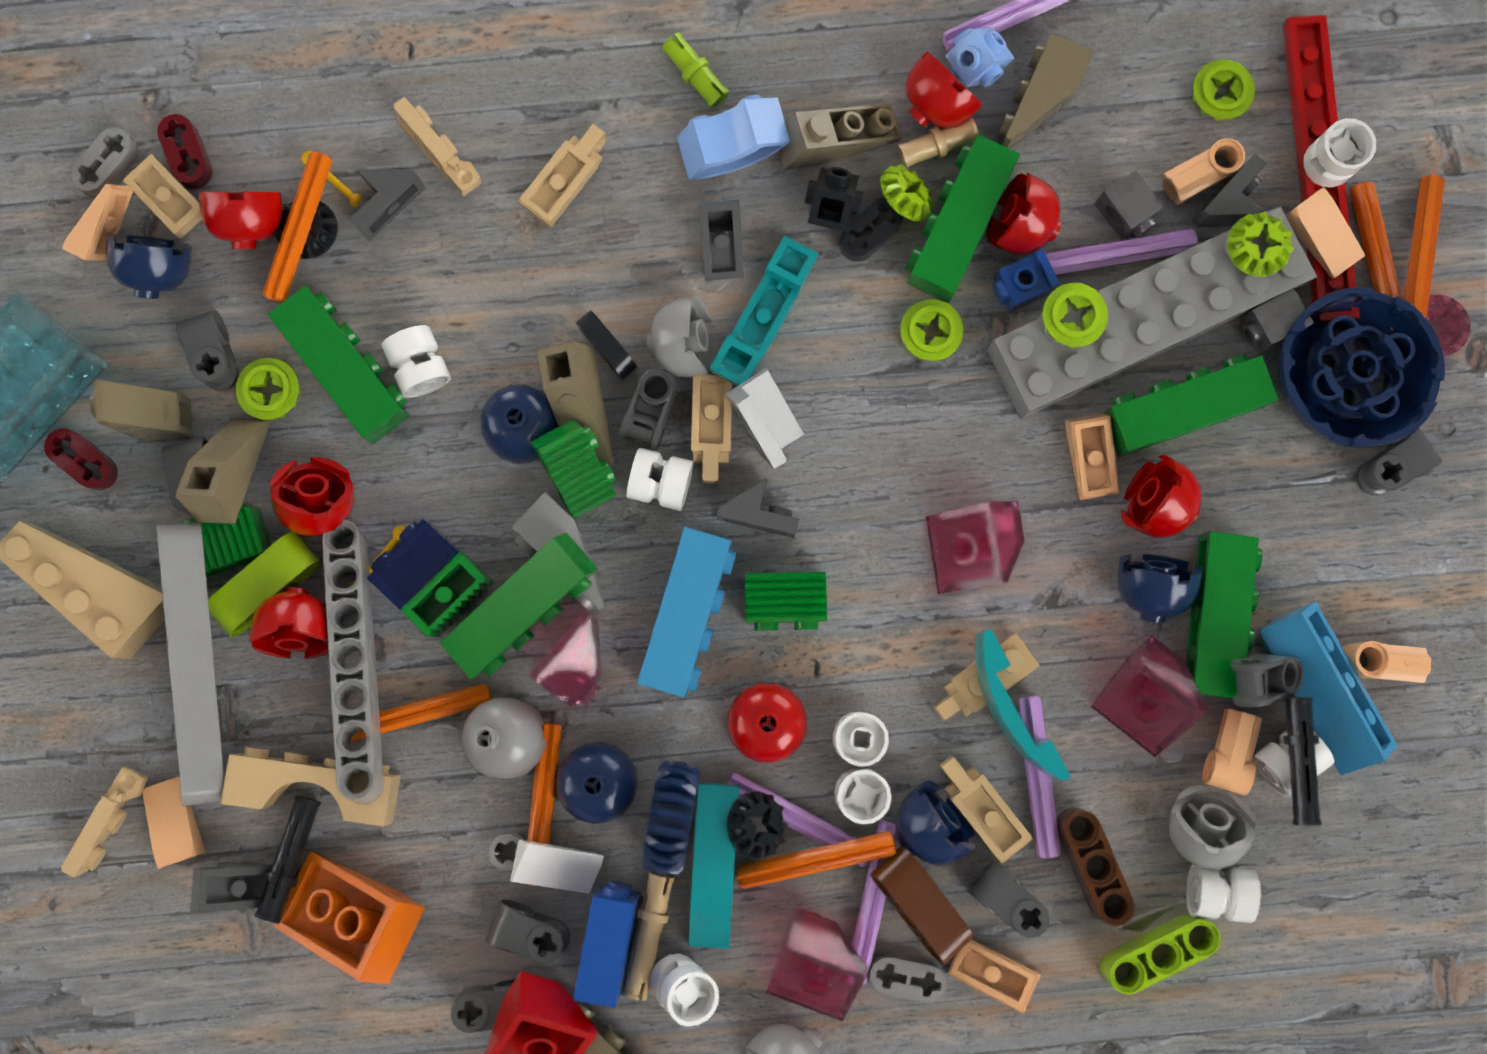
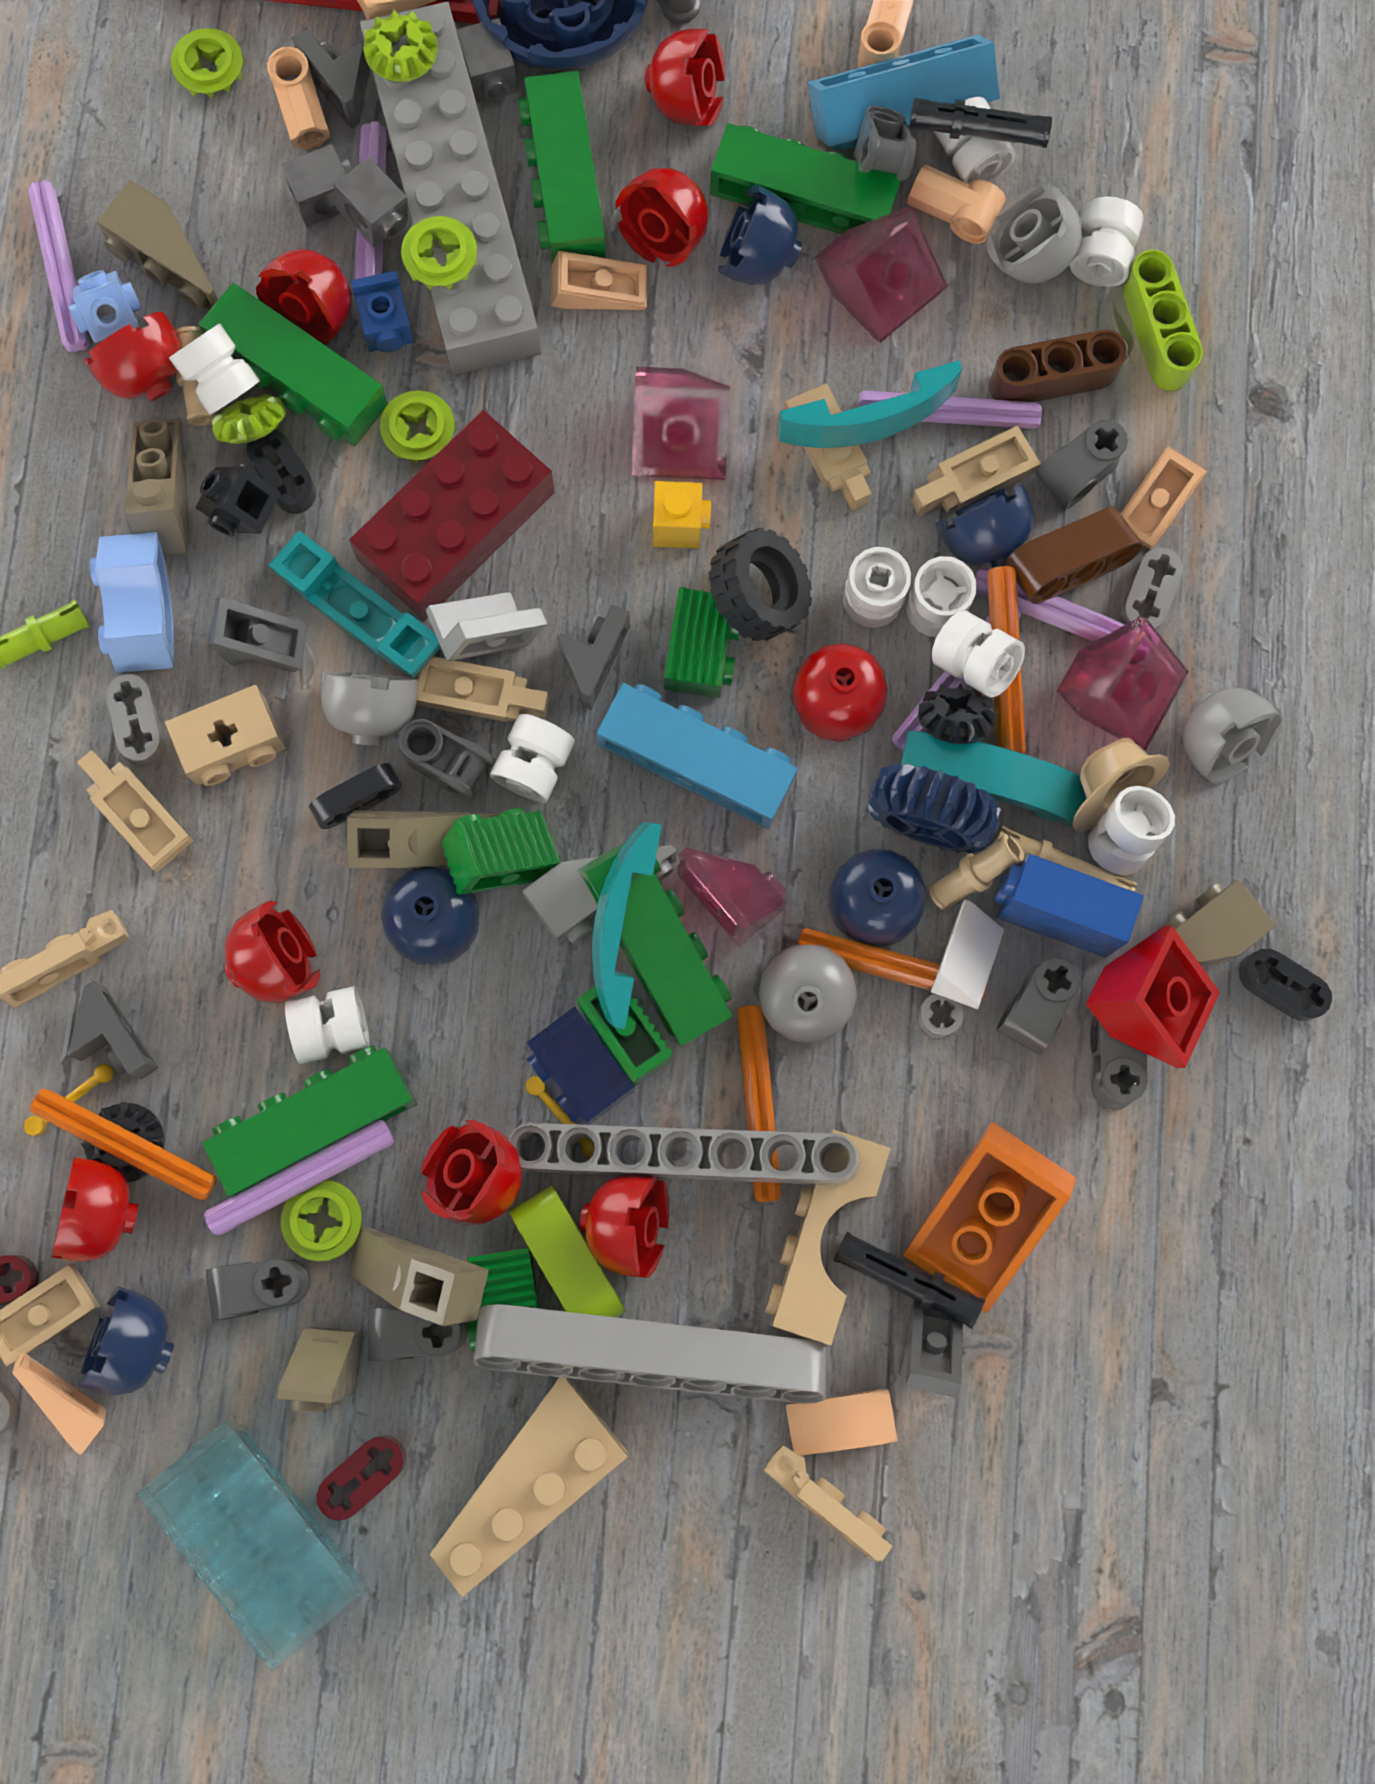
camera: 85 degrees left, 5 degrees down
(293, 365) = (298, 1177): none -> lavender axle
(463, 306) = (270, 955): none -> red cylinder
(562, 573) = (615, 987): none -> teal slope
(625, 862) = (976, 872): none -> tan pin
(629, 212) = (201, 732): none -> tan brick
(635, 153) = (124, 722): none -> light grey beam
(733, 967) = (1112, 771): none -> tan piece
(807, 838) = (979, 654): none -> white wheel
(844, 665) = (737, 597): none -> black tyre
(855, 374) = (453, 514): none -> dark red brick
(893, 561) = (679, 514): none -> yellow brick
(941, 151) = (211, 364): none -> white wheel
(1115, 251) = (371, 202): none -> flat silver brick
(1297, 494) = (686, 77): none -> red cylinder

